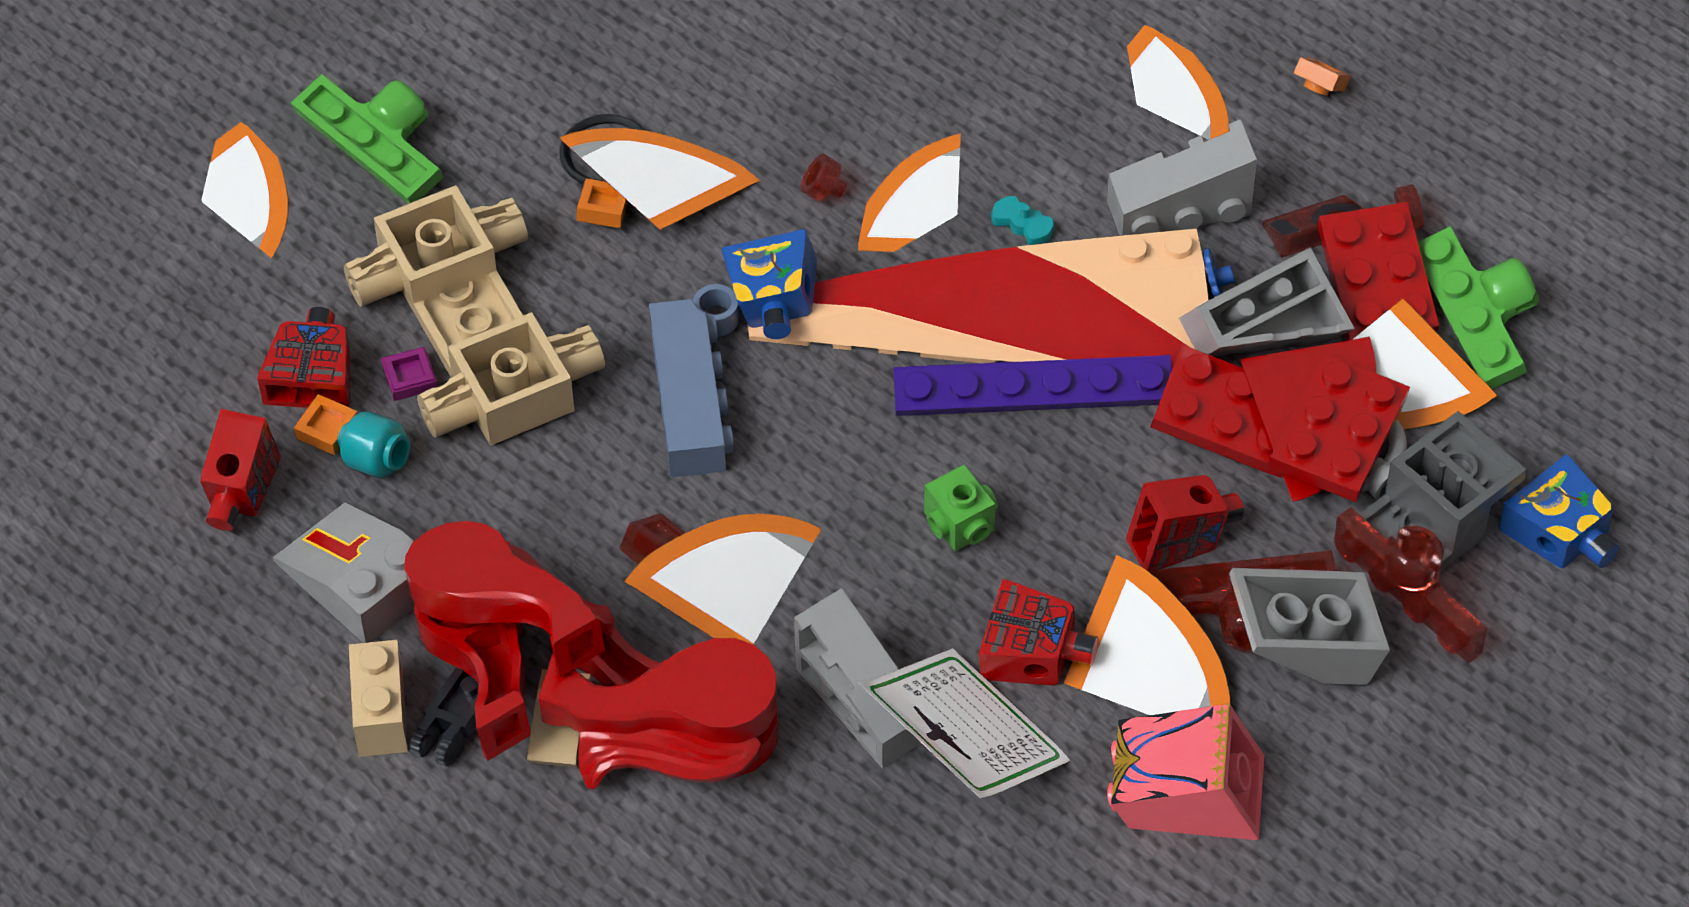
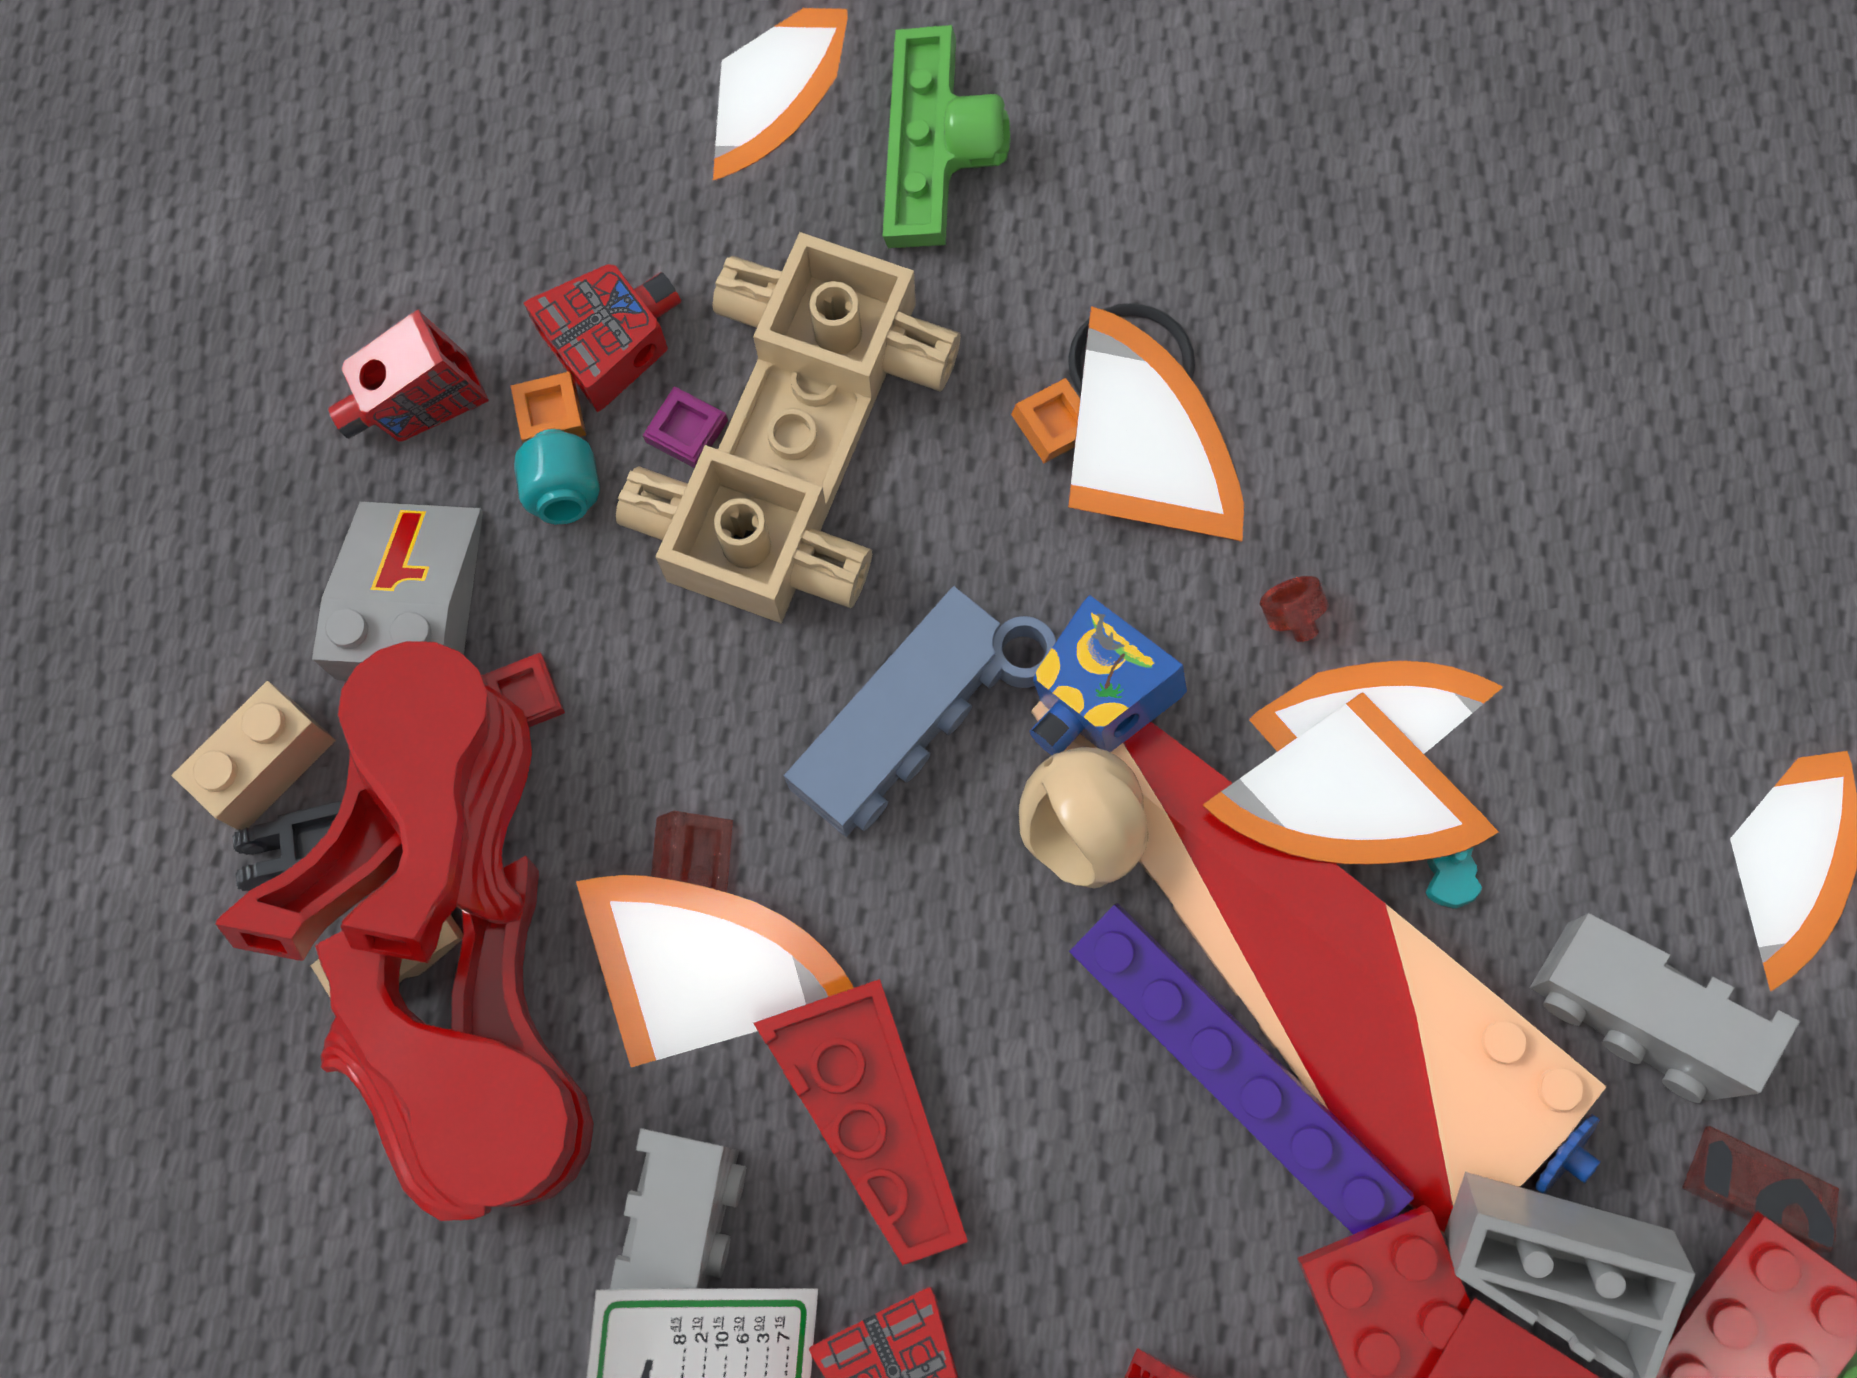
camera: 50 degrees right, 20 degrees up
(835, 339) = (1084, 816): none -> tan piece
(881, 556) = (864, 1100): none -> red wing
(946, 226) = (1352, 796): none -> sticker
(959, 508) = (1011, 1127): bright green brick -> none

